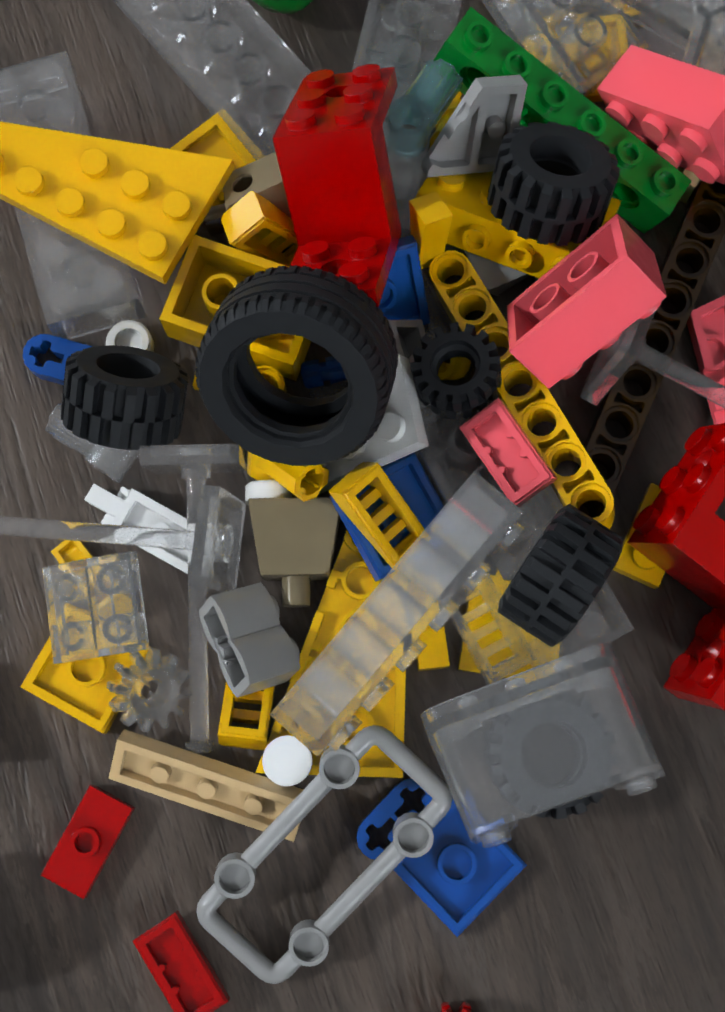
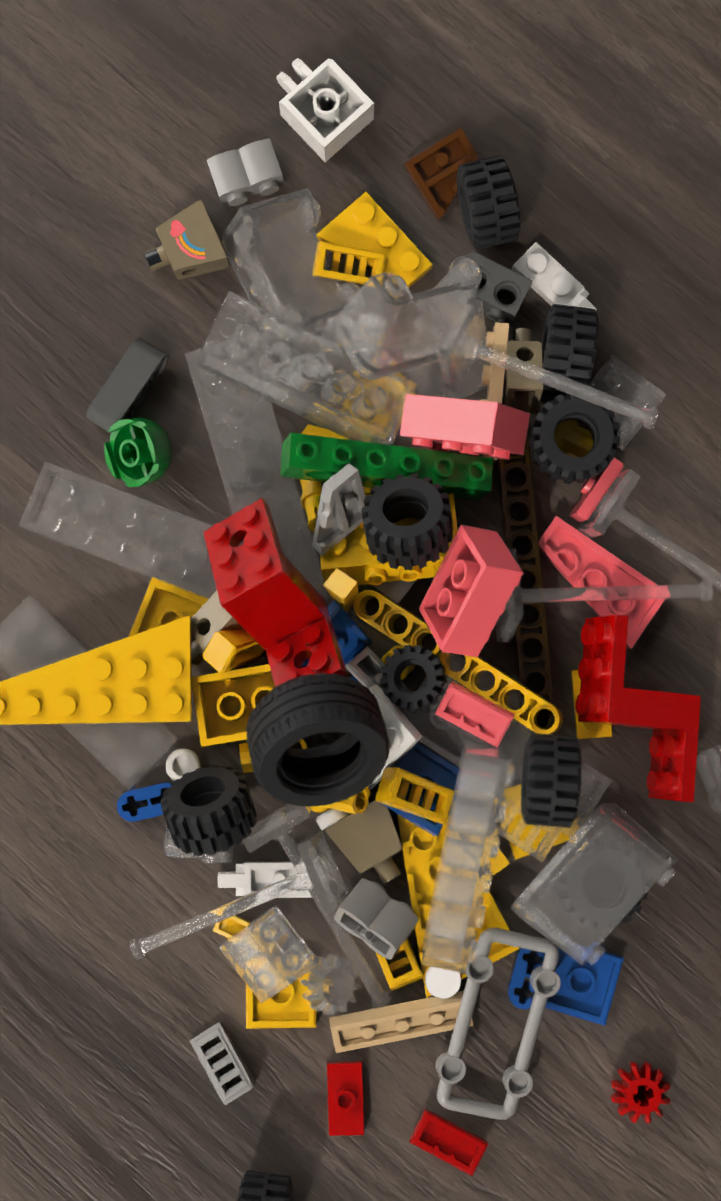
camera: 30 degrees left, 5 degrees up
(422, 107) = (293, 509): clear light blue piece -> none

